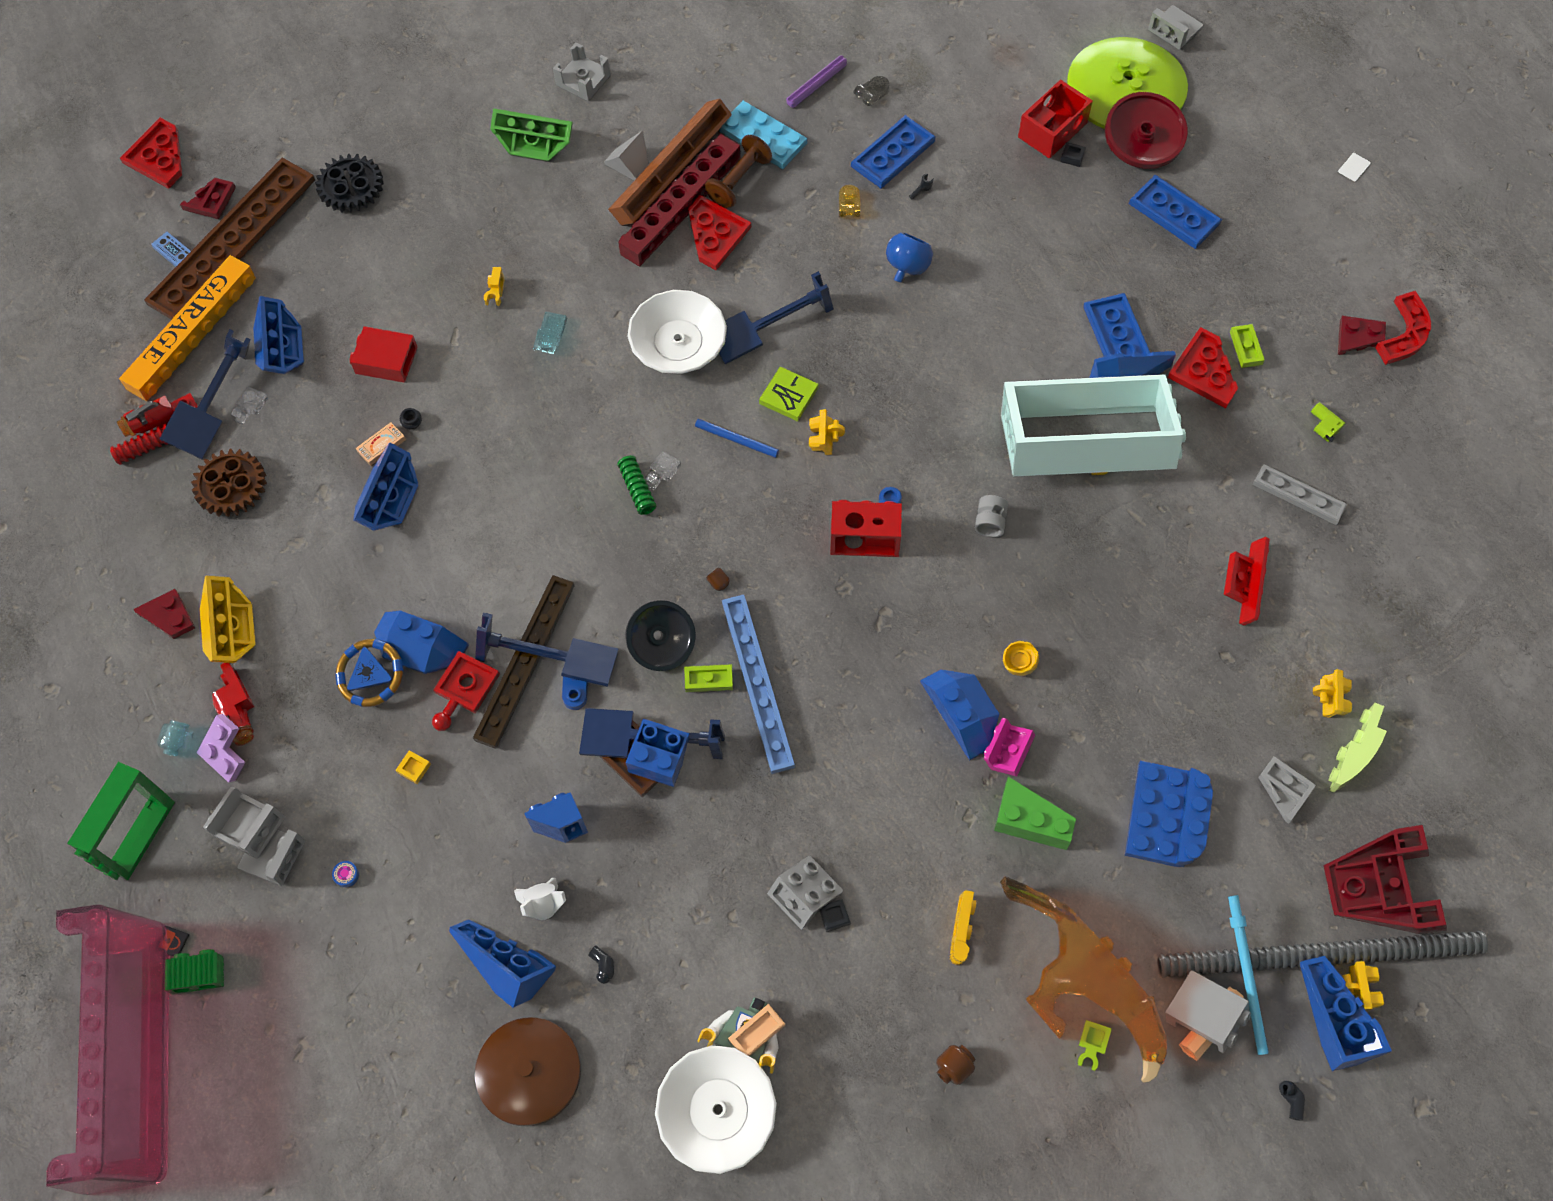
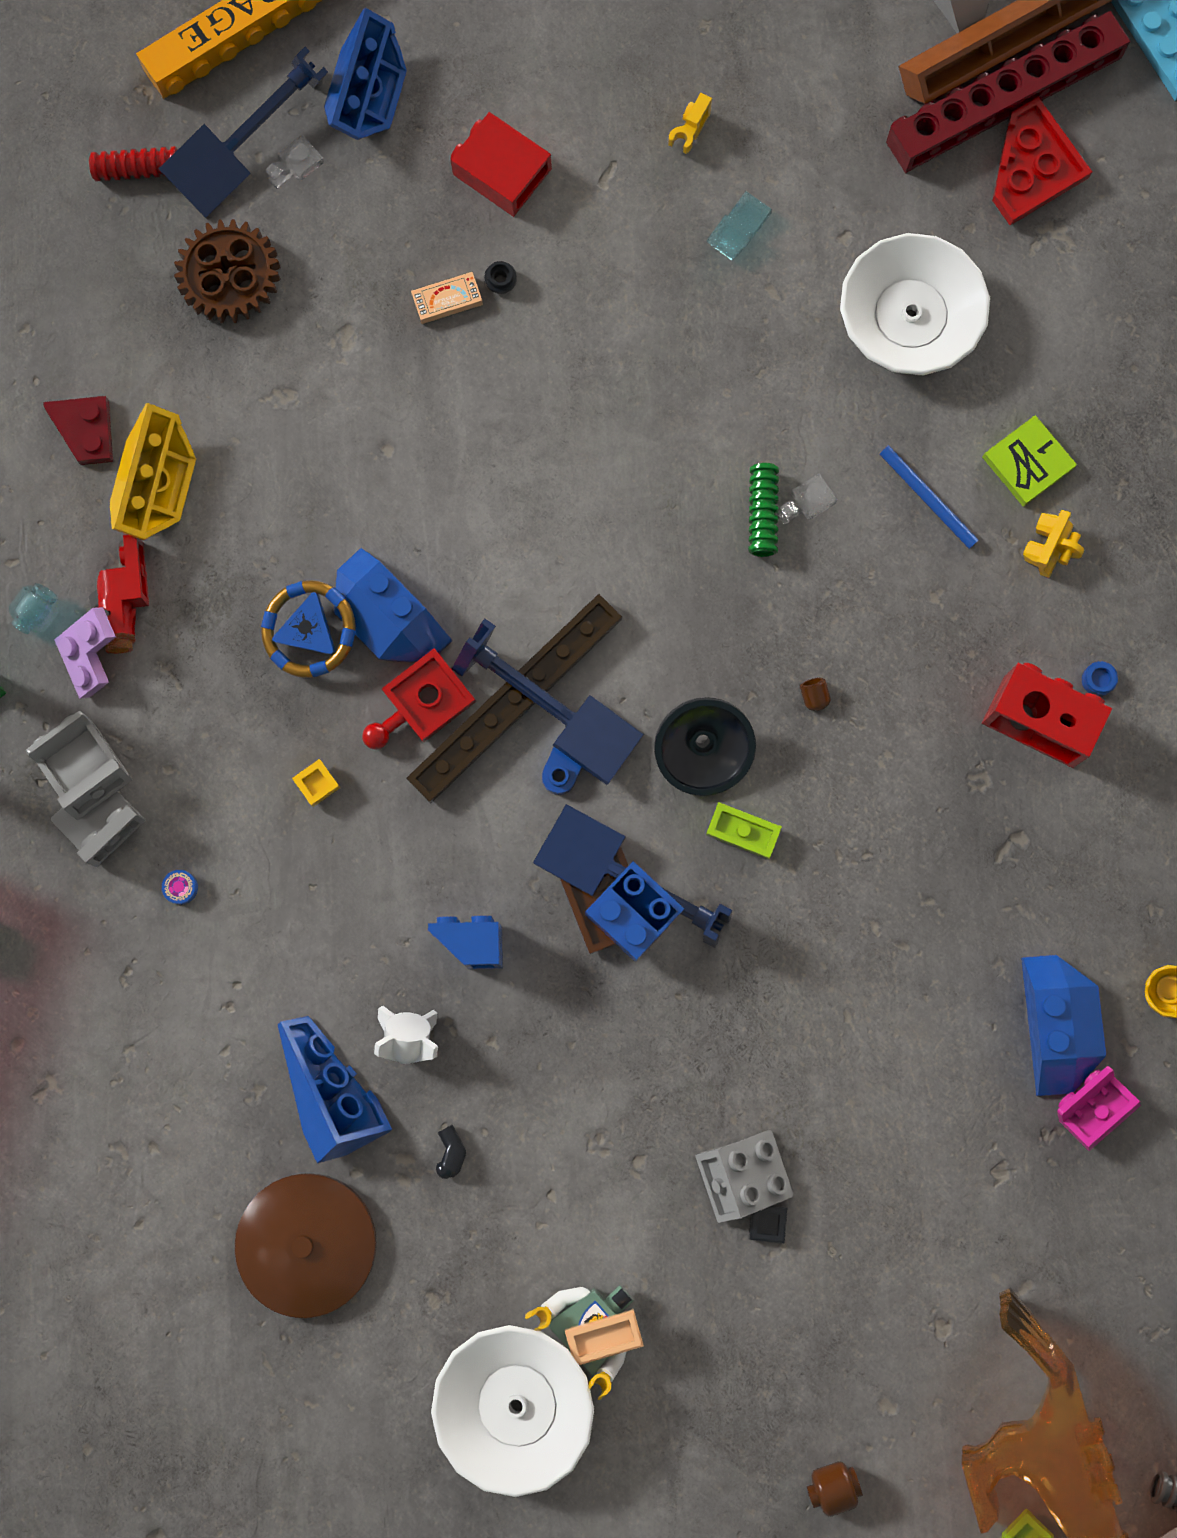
camera: 25 degrees right, 15 degrees up
(151, 415) = (164, 127): red plate -> none
(387, 490) = (428, 375): blue wedge -> none
(742, 333) = (1005, 339): dark blue piece -> none
(756, 151) = (1149, 59): reddish brown hose -> none
(758, 684) = (805, 867): medium blue plate -> none
(962, 929) = (923, 1318): yellow hinge -> none
(1033, 817) = (1083, 1215): bright green wedge -> none

